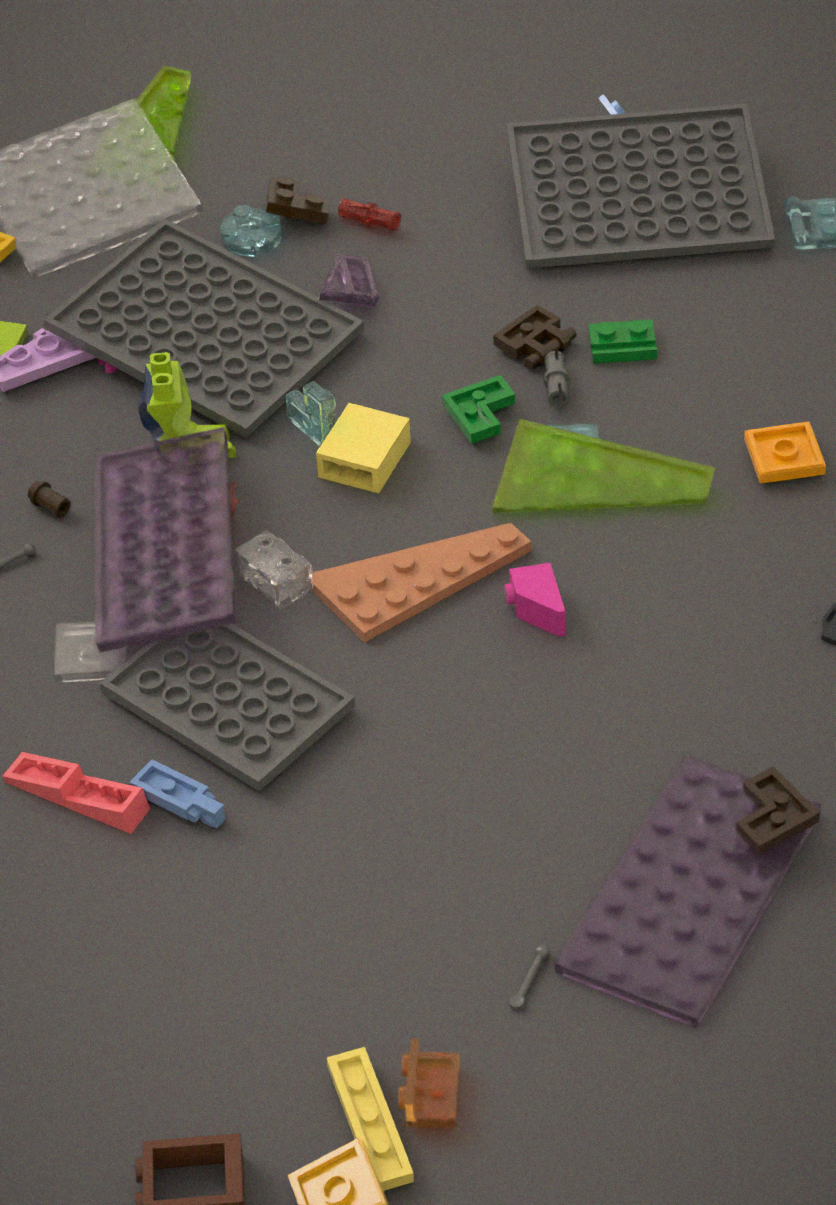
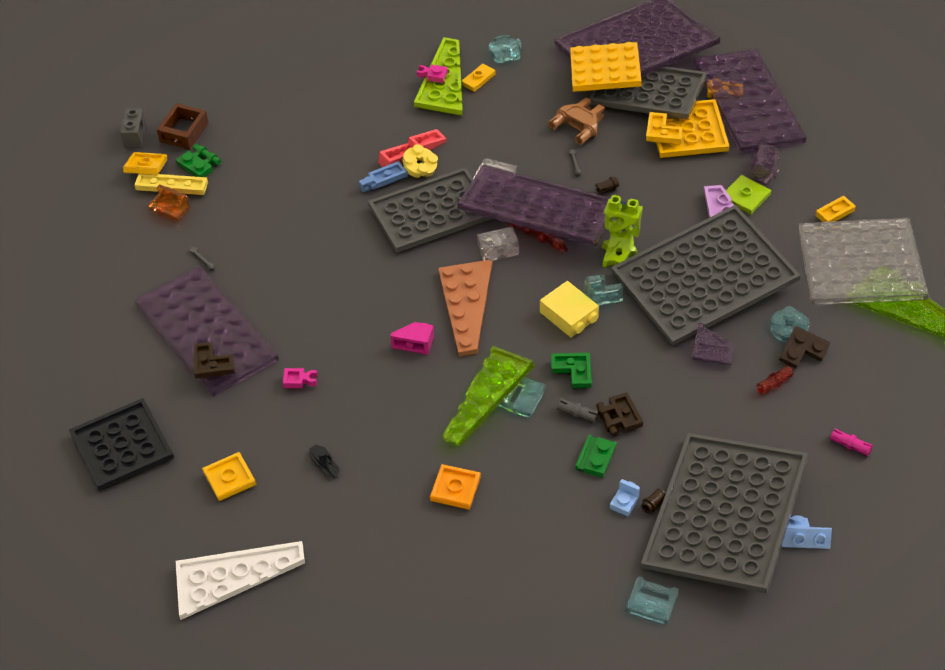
camera: 115 degrees right, 5 degrees up
(113, 754) = (419, 153): none -> light yellow plate
(288, 1117) = (195, 165): none -> green plate
(434, 127) = (851, 442): none -> dark pink pin
(662, 262) = (649, 504): none -> dark brown pin
(676, 292) = (625, 497): none -> light blue bracket
(714, 710) = (297, 377): none -> dark pink plate

